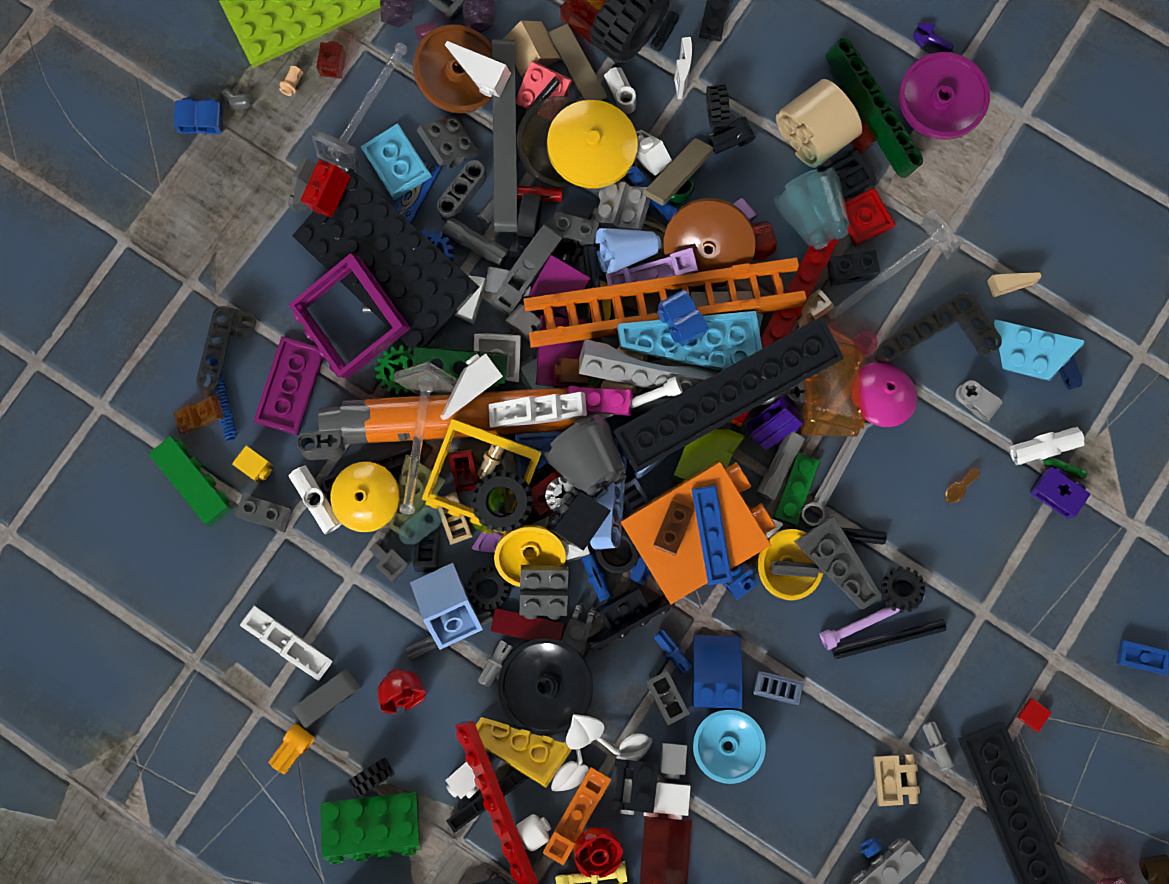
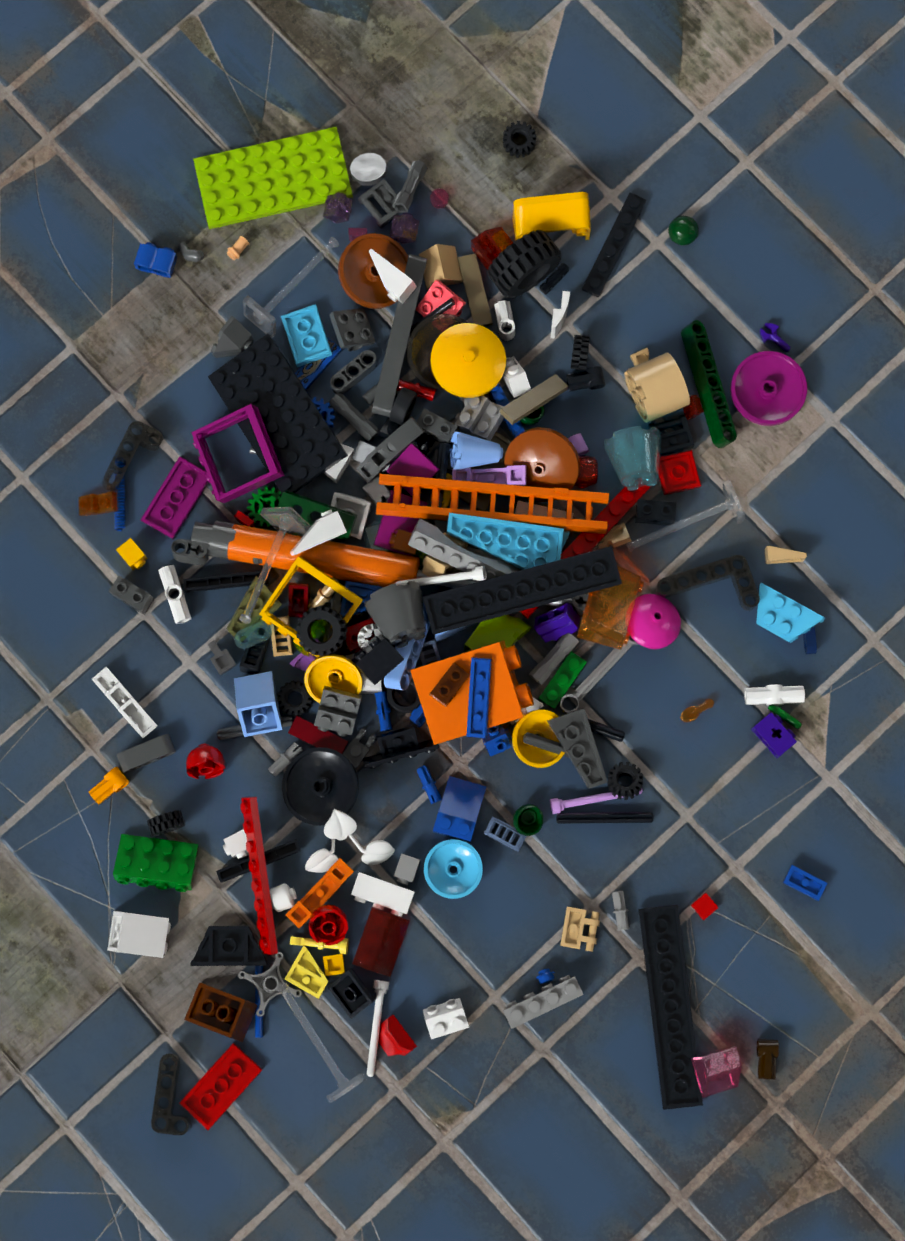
camera: 15 degrees right, 0 degrees up
(190, 481) = (79, 555): green brick -> none
(325, 188) = (243, 345): red brick -> none
(331, 68) = (274, 246): clear red brick -> none
(375, 391) = (244, 520): none -> red tile
(379, 500) = (226, 604): yellow dish -> none
(528, 753) = (294, 835): yellow wing -> none
(537, 410) = (367, 566): white slope -> none
(606, 400) = (419, 570): dark pink plate -> none
(642, 789) = (376, 882): black plate -> none
(667, 697) = (414, 819): dark grey brick -> none
(682, 317) = (501, 520): blue brick -> none
(786, 96) = (640, 357): none -> tan tile
(801, 664) = (528, 819): none -> dark green piece
(866, 342) = (650, 575): clear pink tile -> none
(980, 402) = (732, 647): light grey piece -> none

